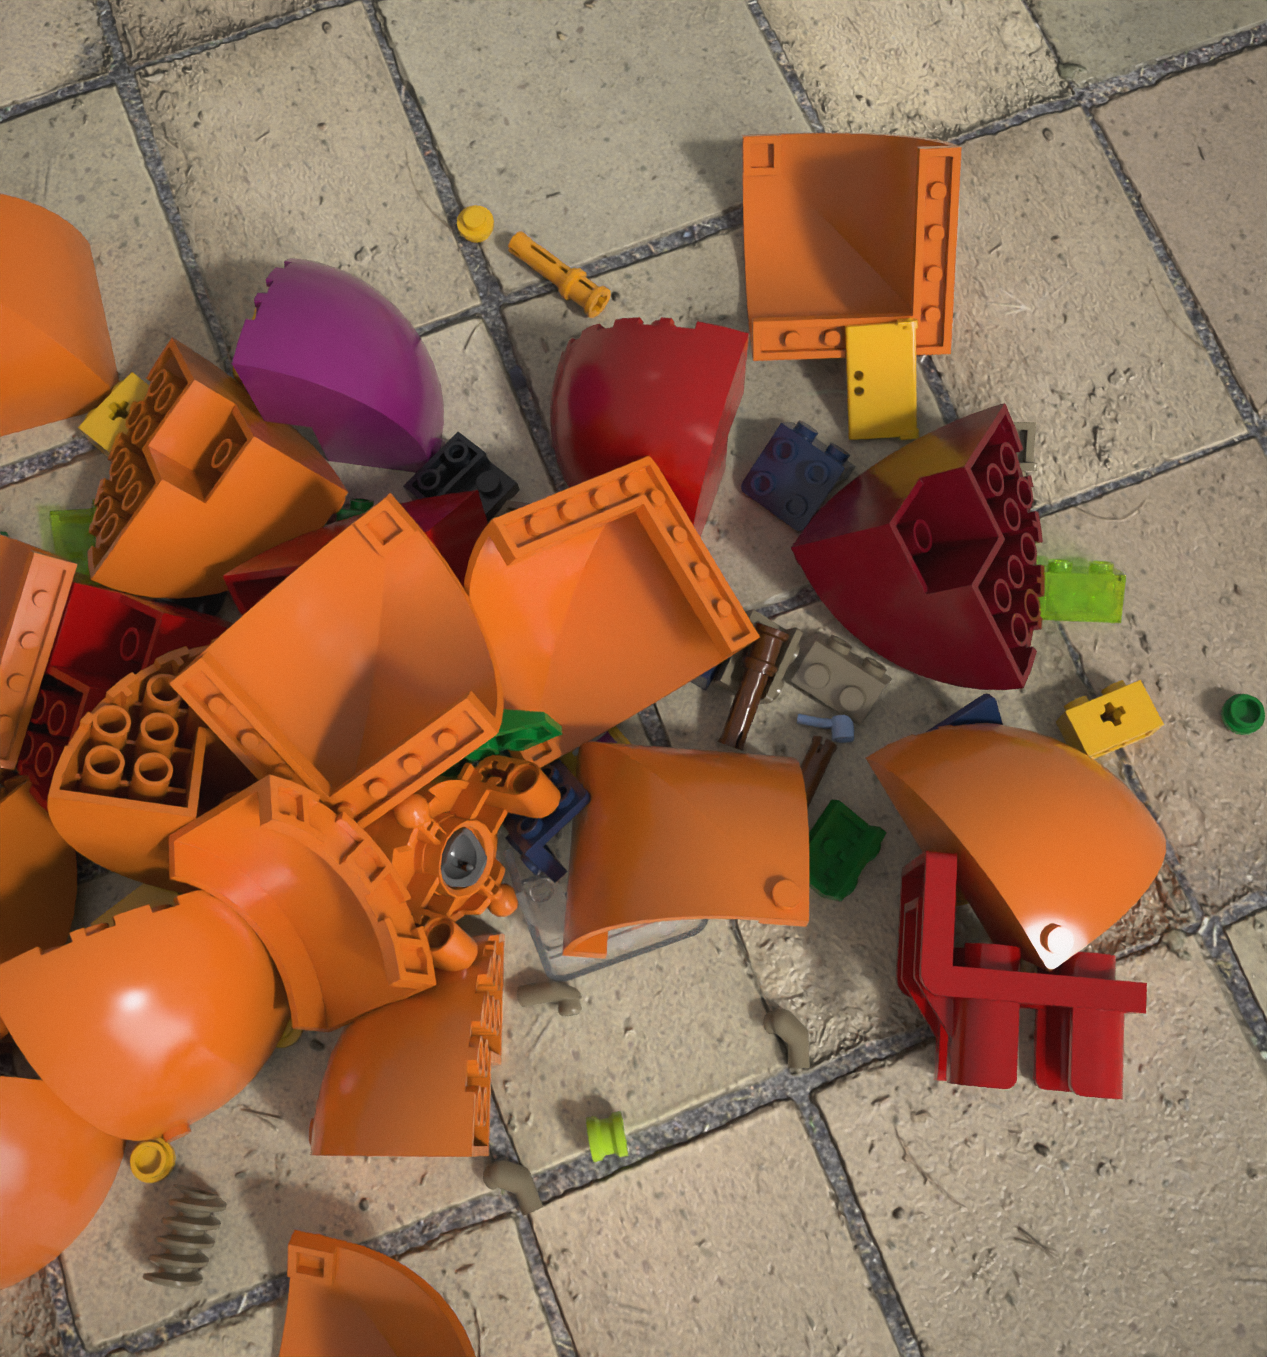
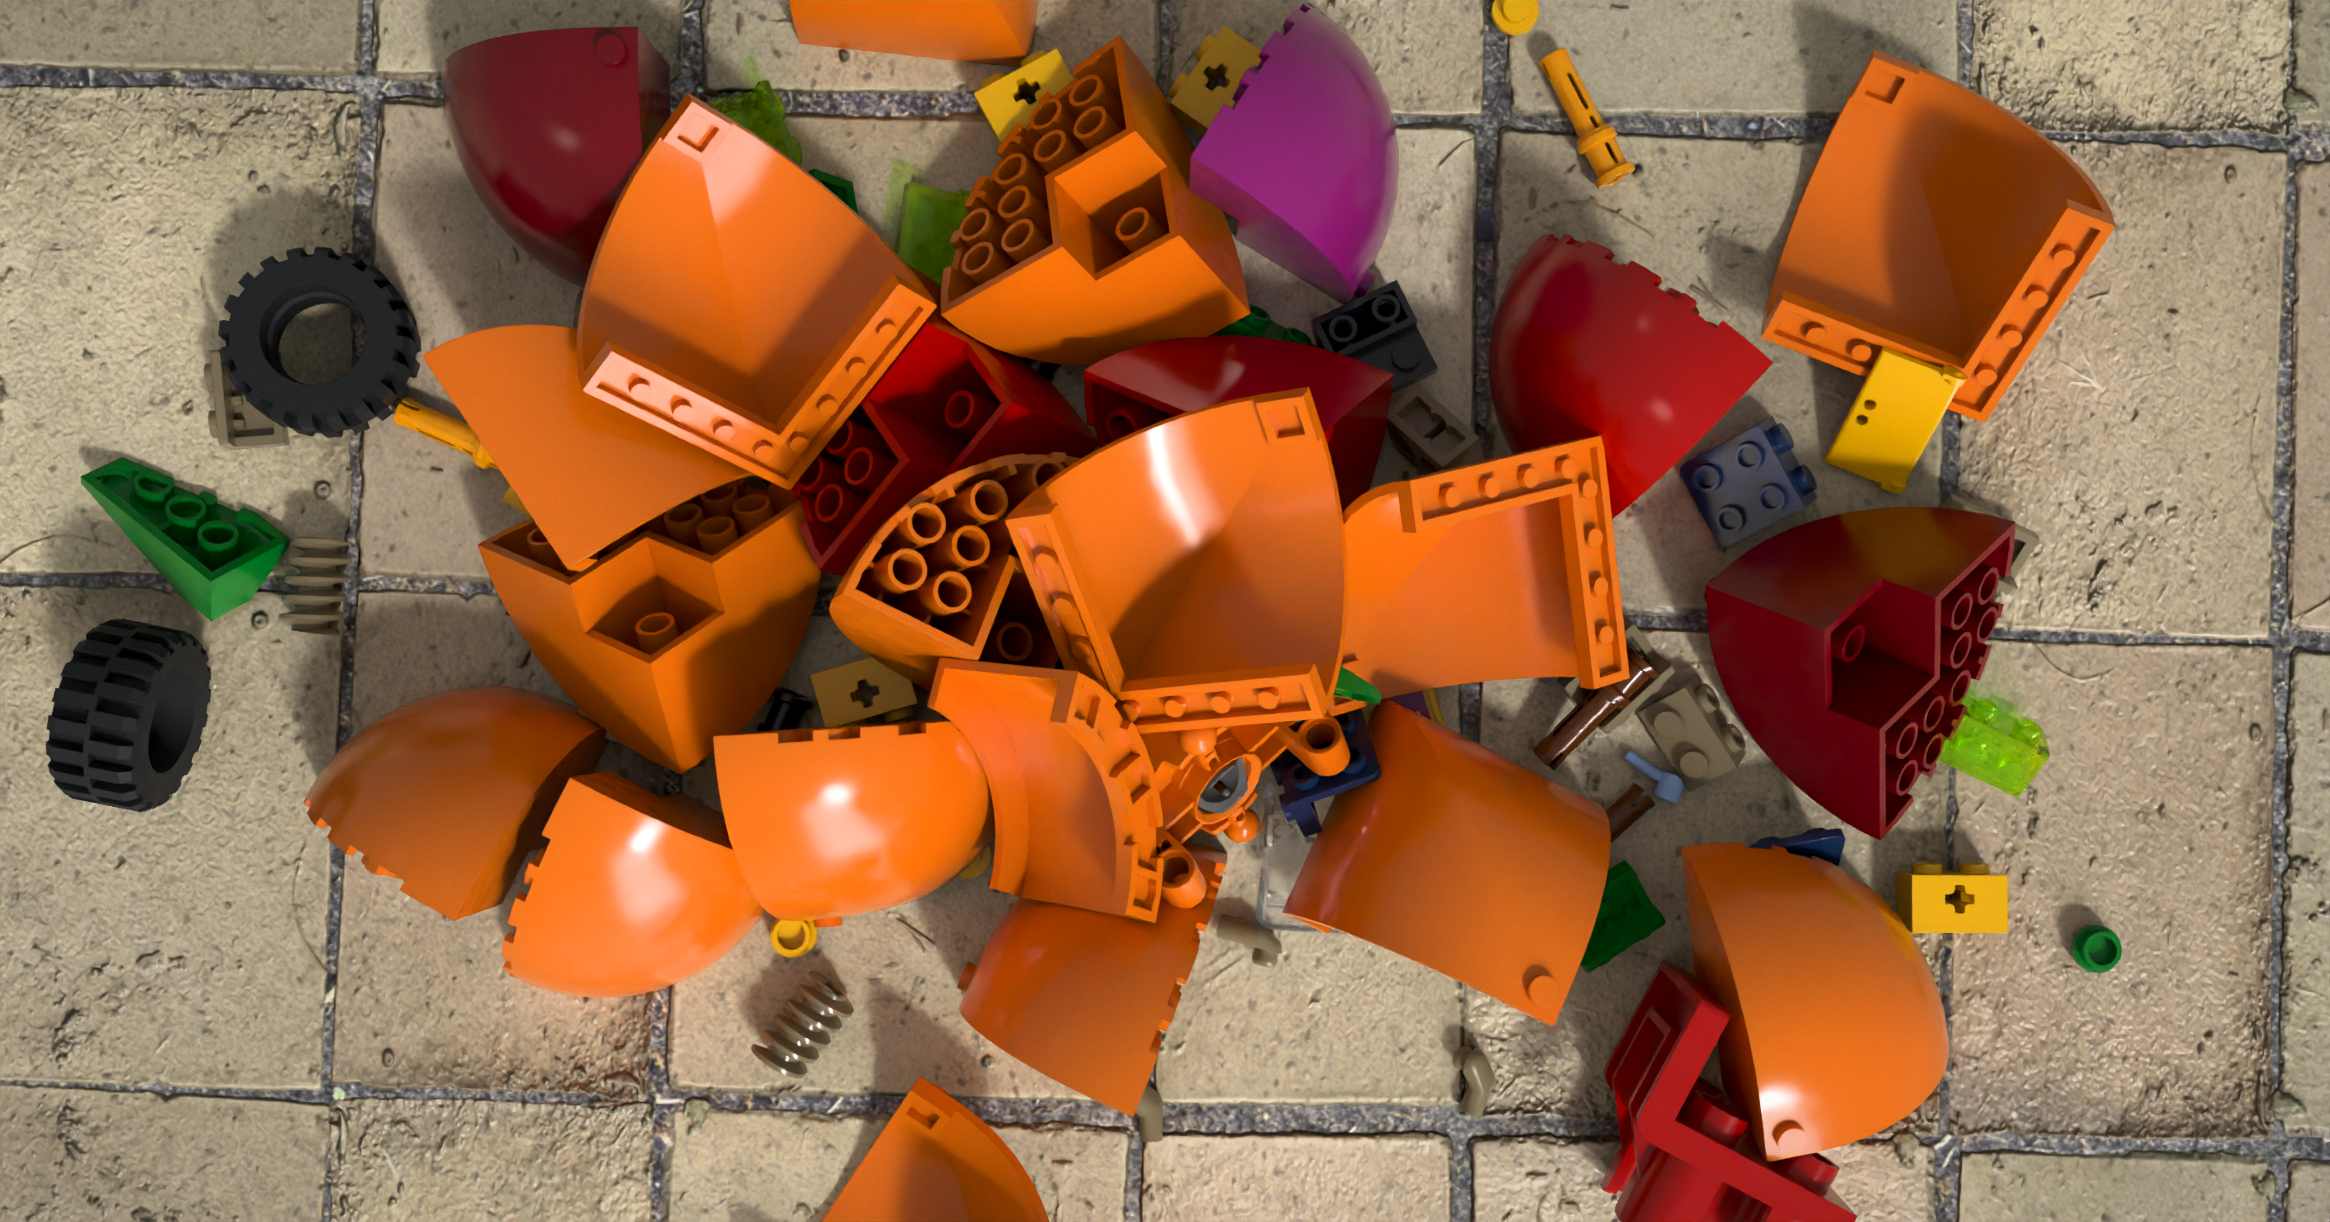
camera: 20 degrees right, 15 degrees up
(606, 1136) = (1253, 1101): lime wheel -> none

